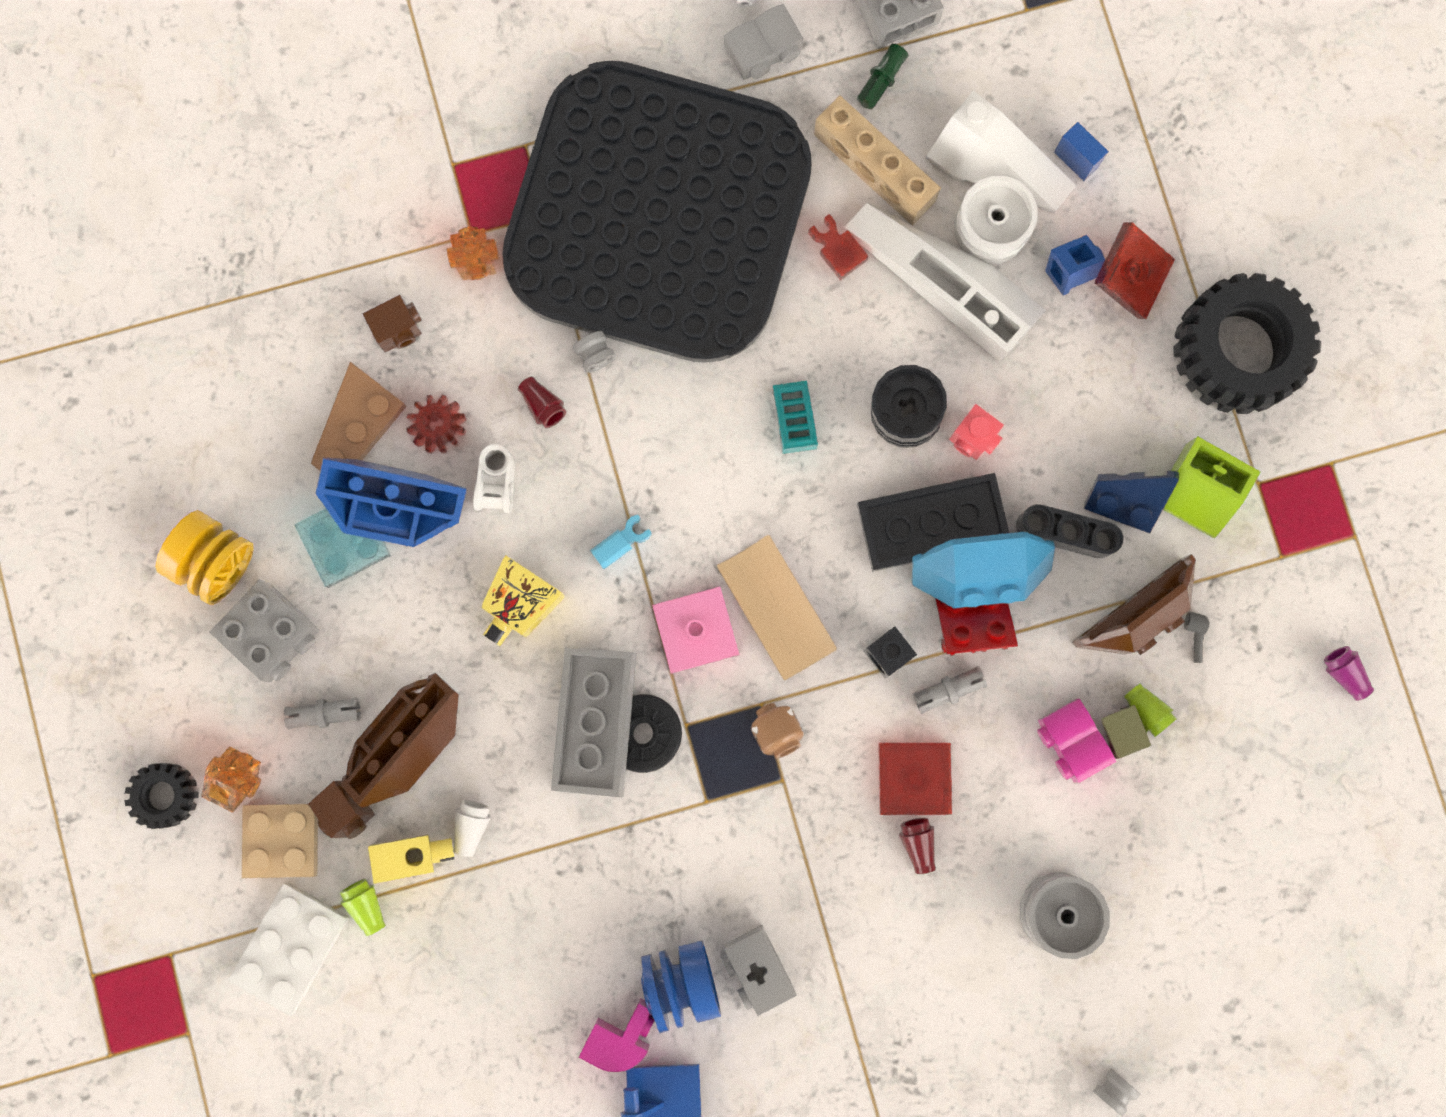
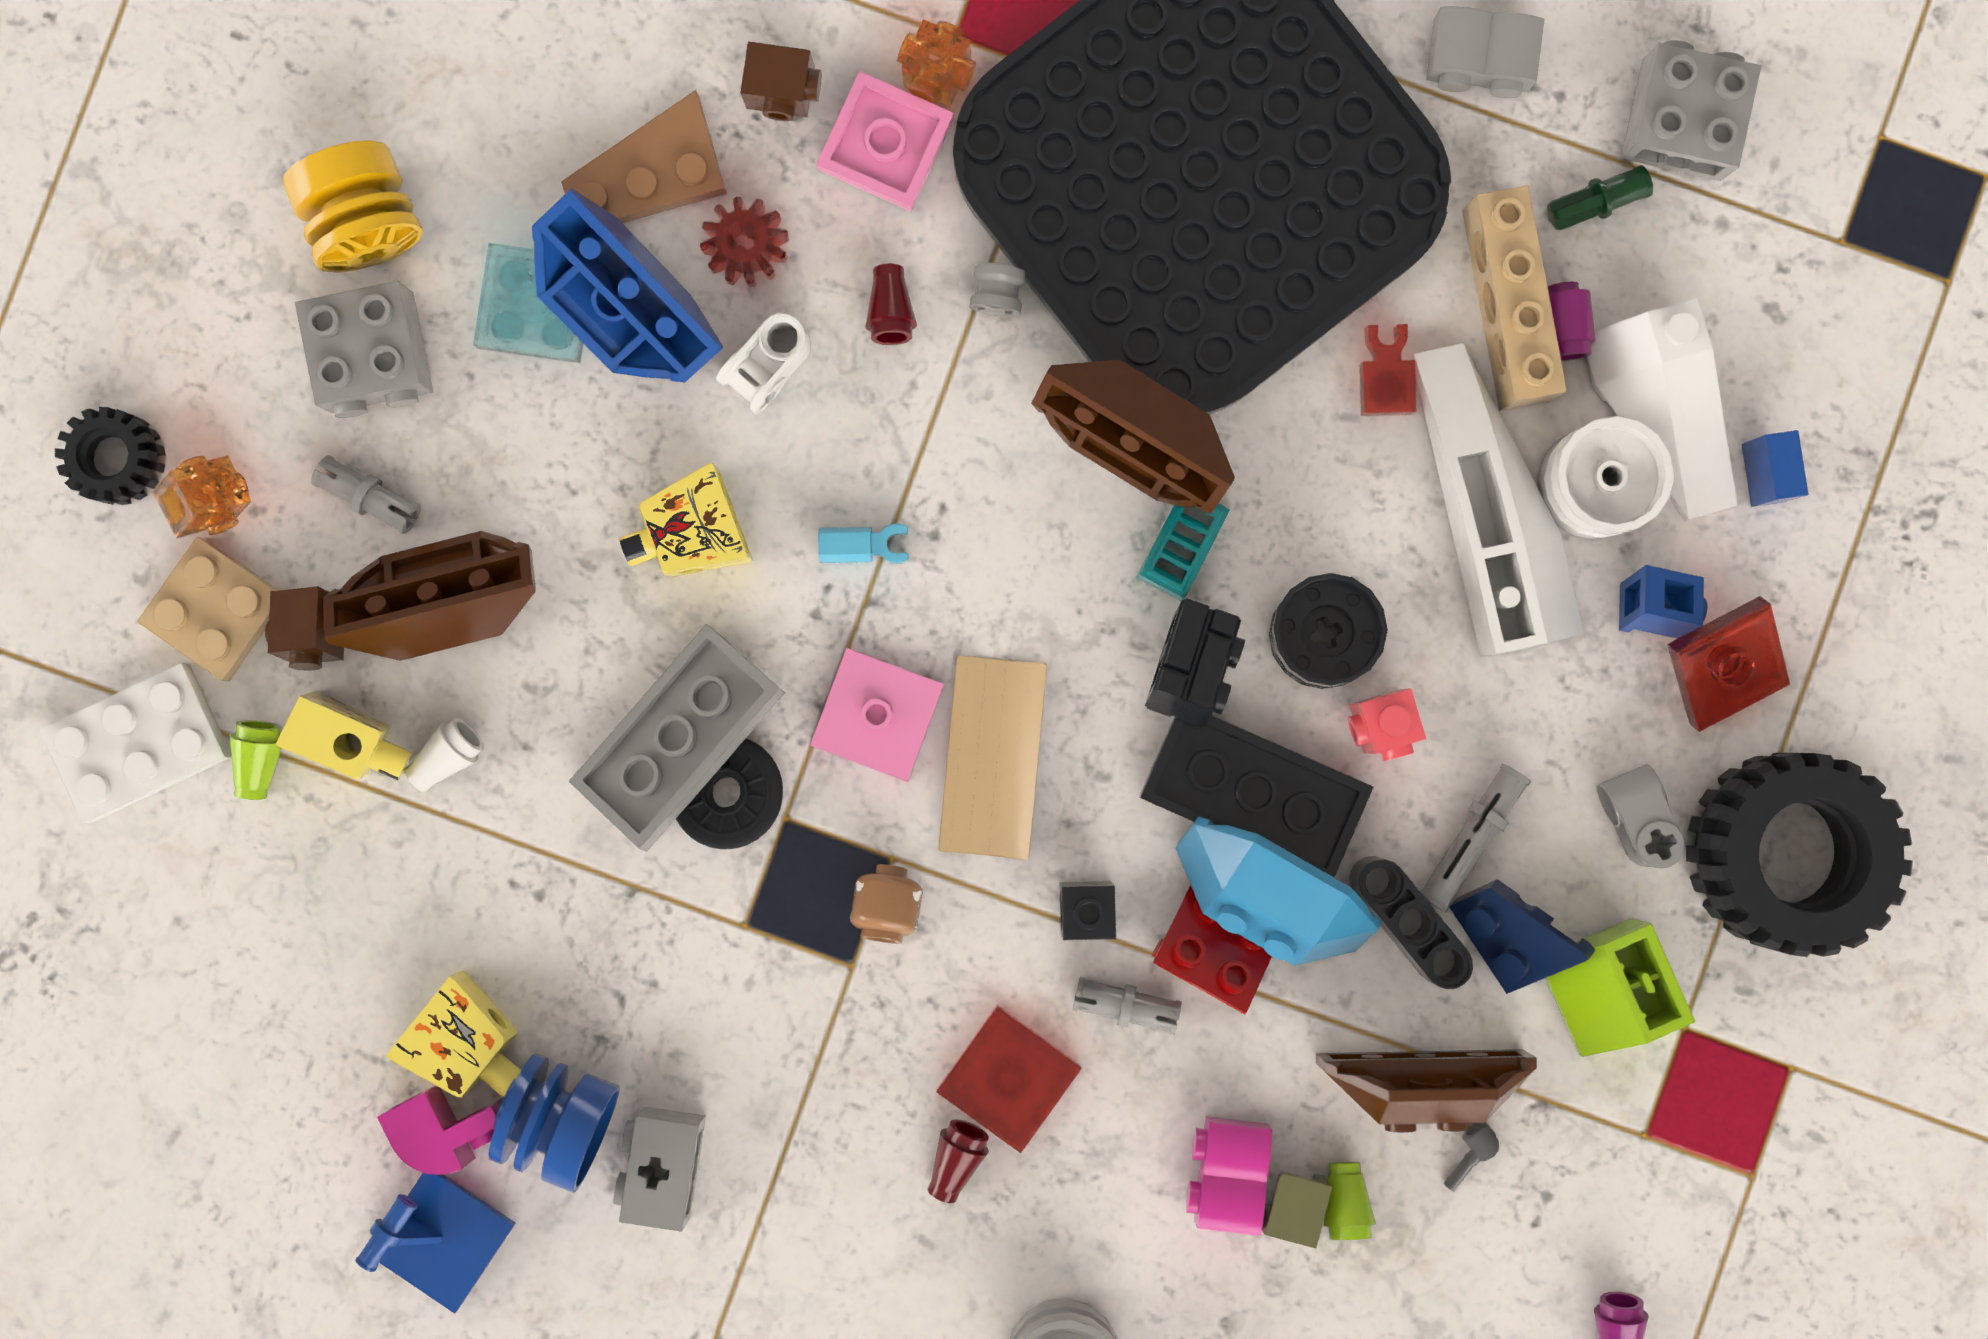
camera: 30 degrees right, 5 degrees up
(474, 316) = (885, 141): none -> bright pink plate
(593, 982) = (459, 1040): none -> light yellow torso
(727, 373) = (1137, 431): none -> reddish brown wedge
(849, 475) = (1195, 662): none -> black brick
(916, 149) = (1572, 319): none -> magenta brick
(1069, 460) = (1475, 836): none -> light grey pin
(1146, 384) = (1641, 809): none -> light grey piece

